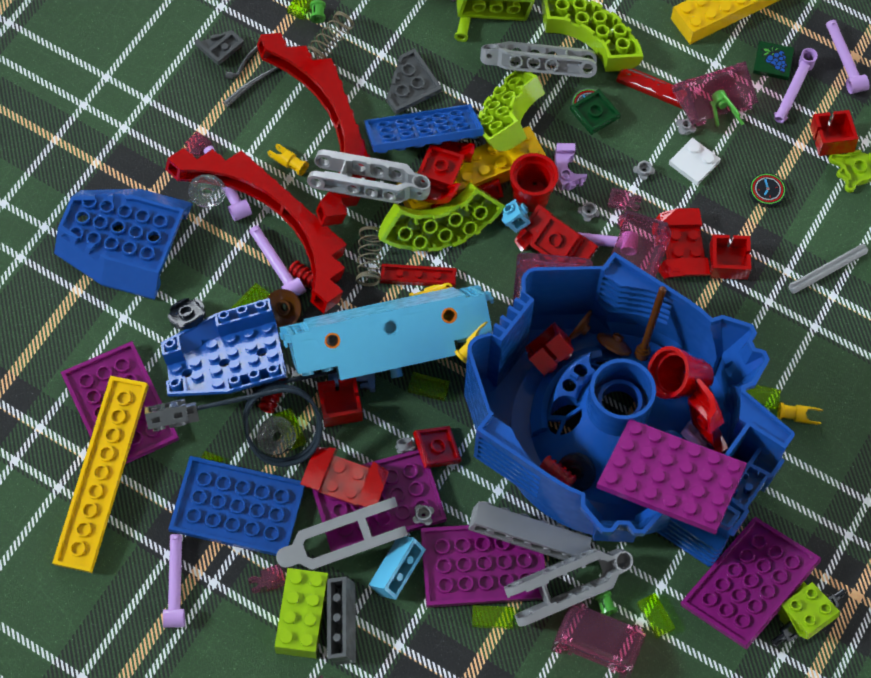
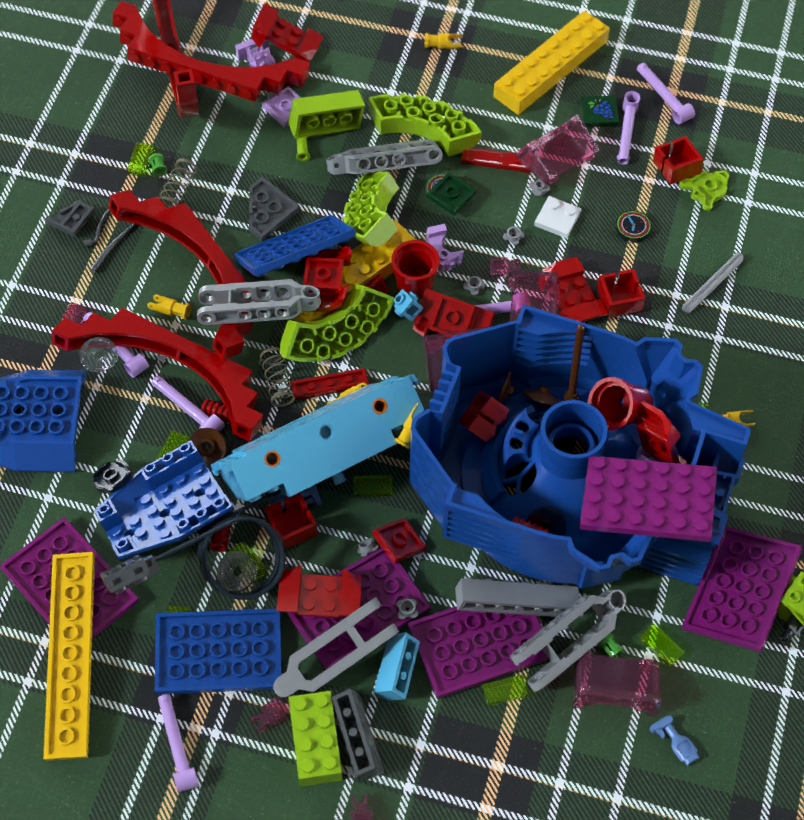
camera: 15 degrees left, 5 degrees down
(721, 100) = (565, 155): bright green plant -> none

